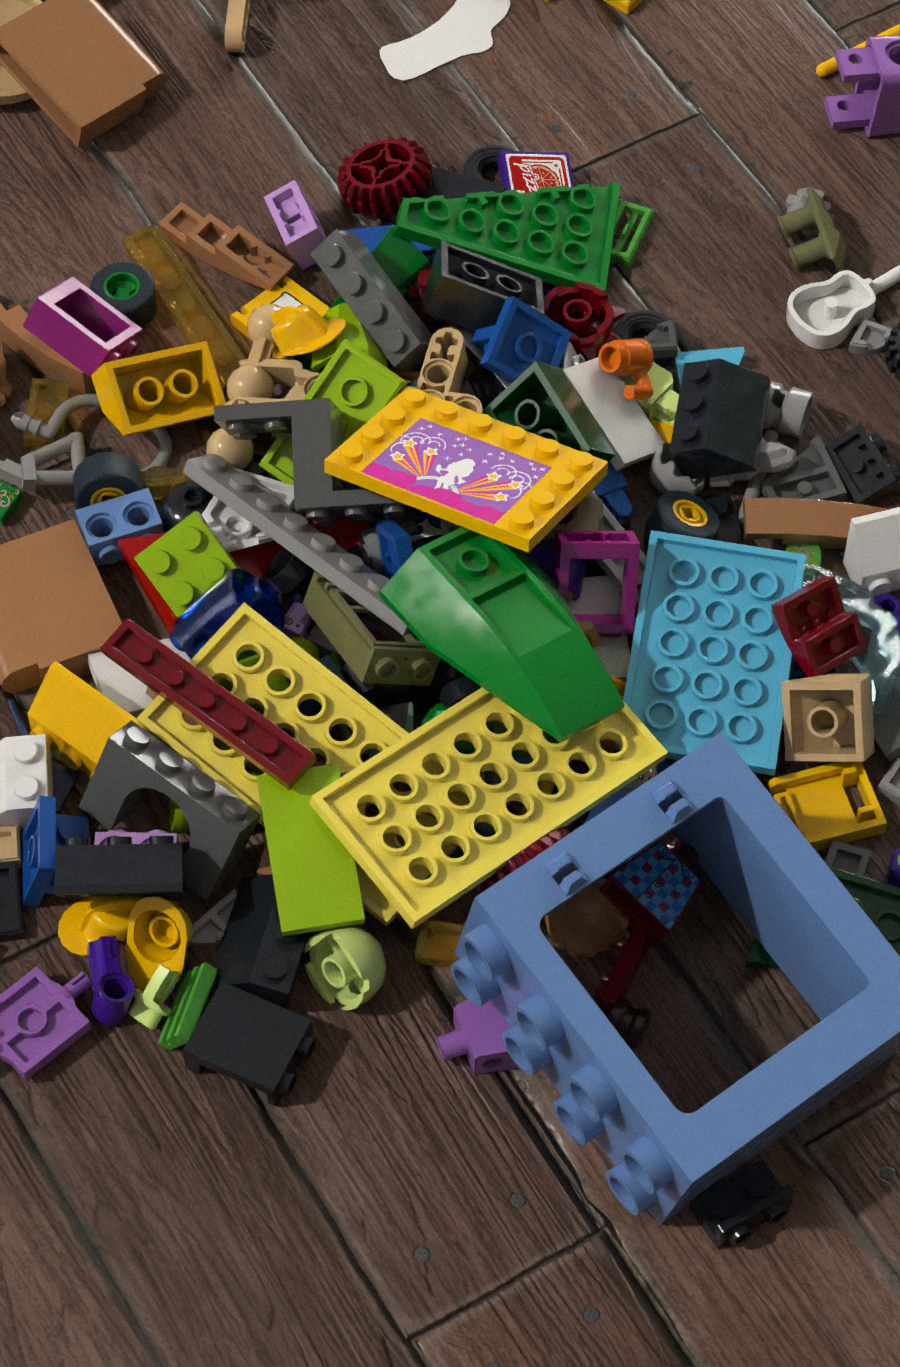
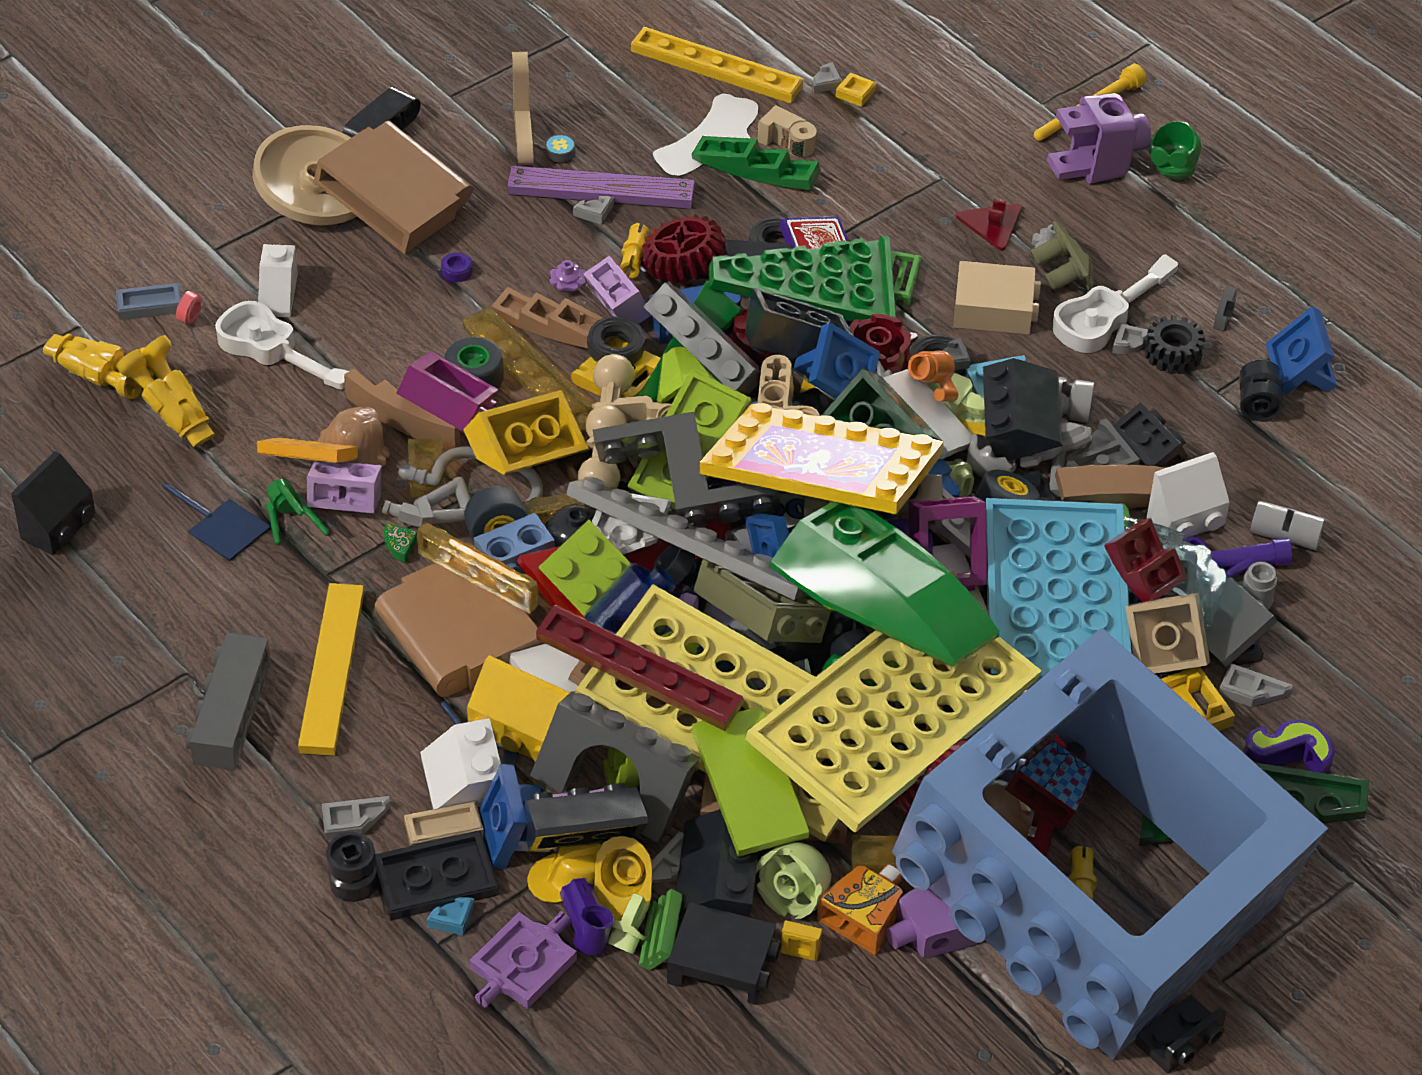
camera: 10 degrees left, 10 degrees down
(61, 542) = (477, 567): none -> clear yellow plate
(132, 170) = (456, 267): none -> dark purple tile
(249, 196) = (567, 277): none -> medium lavender plant
(276, 34) = (560, 148): none -> tile
(288, 266) = (619, 327): none -> black tyre
(299, 114) = (594, 210): none -> light grey tile
(303, 330) = (647, 369): yellow piece -> none
(312, 87) = (590, 185): none -> medium lavender tile
(328, 170) = (633, 250): none -> yellow pin
(339, 1039) = (801, 940): none -> yellow tile
(415, 1006) = (862, 905): none -> torso
(484, 72) = (747, 160): none -> green slope
(535, 39) = (787, 131): none -> tan leg
(638, 489) = (962, 475): none -> yellowish green piece
(669, 1007) = (1082, 870): none -> yellow pin
(726, 271) = (996, 297): none -> tan brick
(745, 174) = (992, 223): none -> dark red piece

